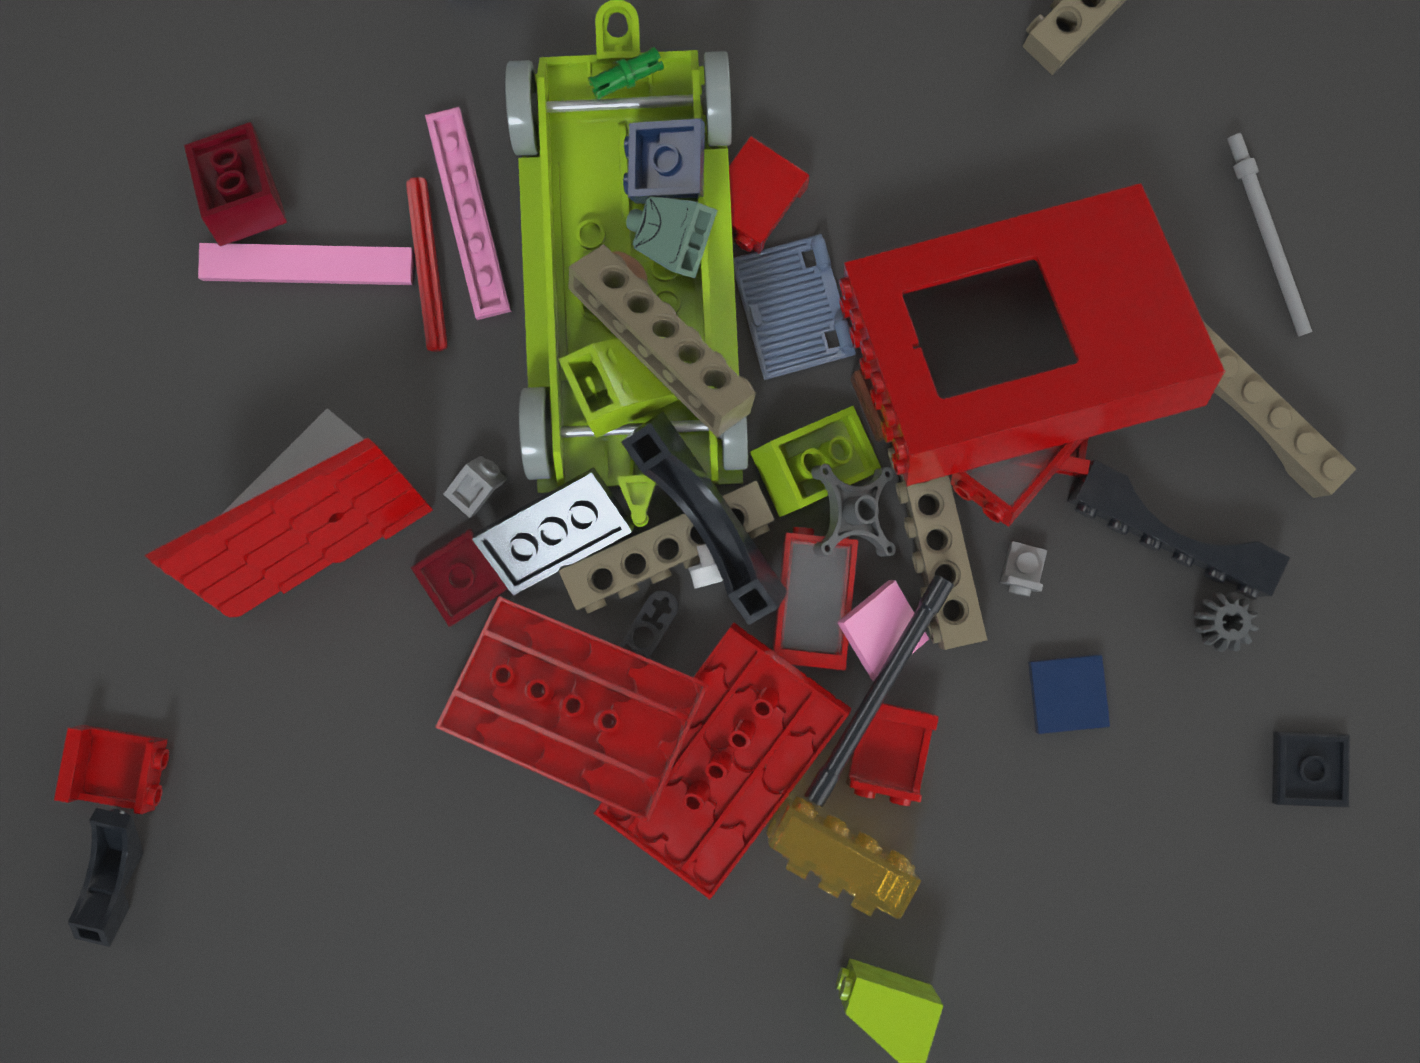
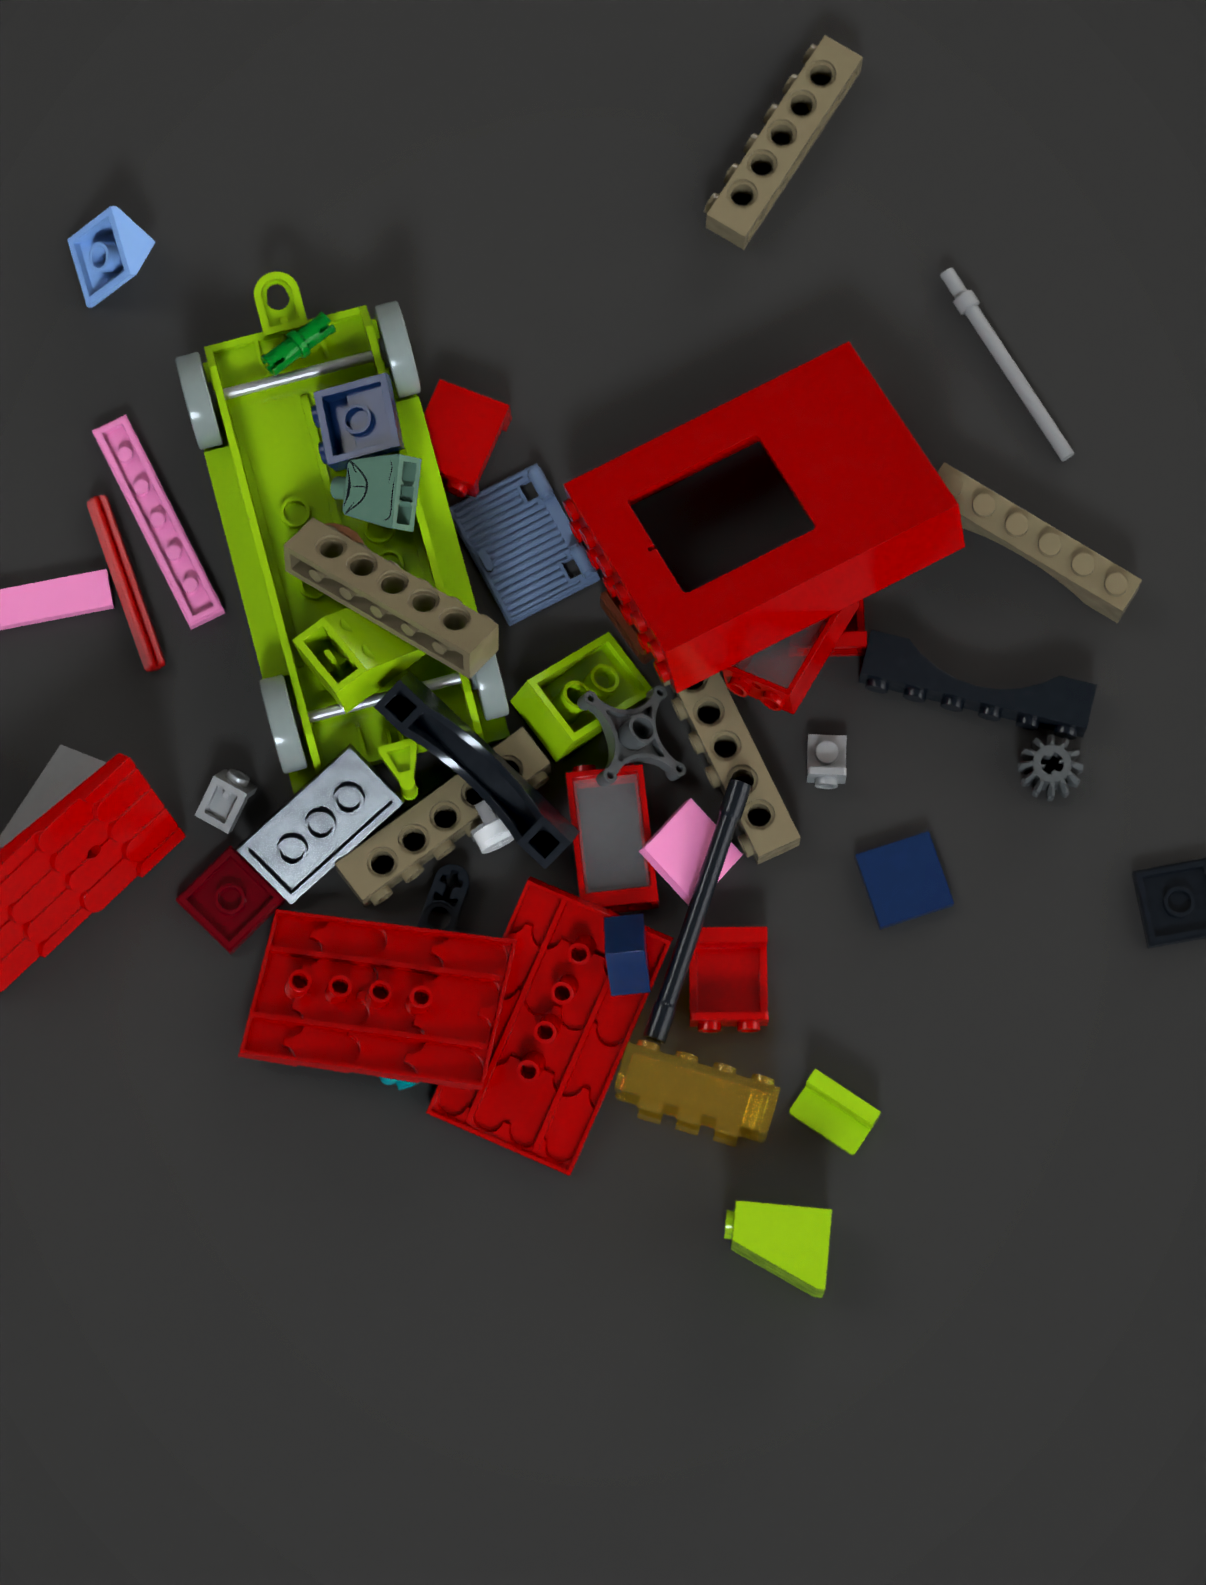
camera: 10 degrees left, 10 degrees down
(806, 717) = (626, 954): none -> dark blue slope
(959, 893) = (834, 1112): none -> lime panel

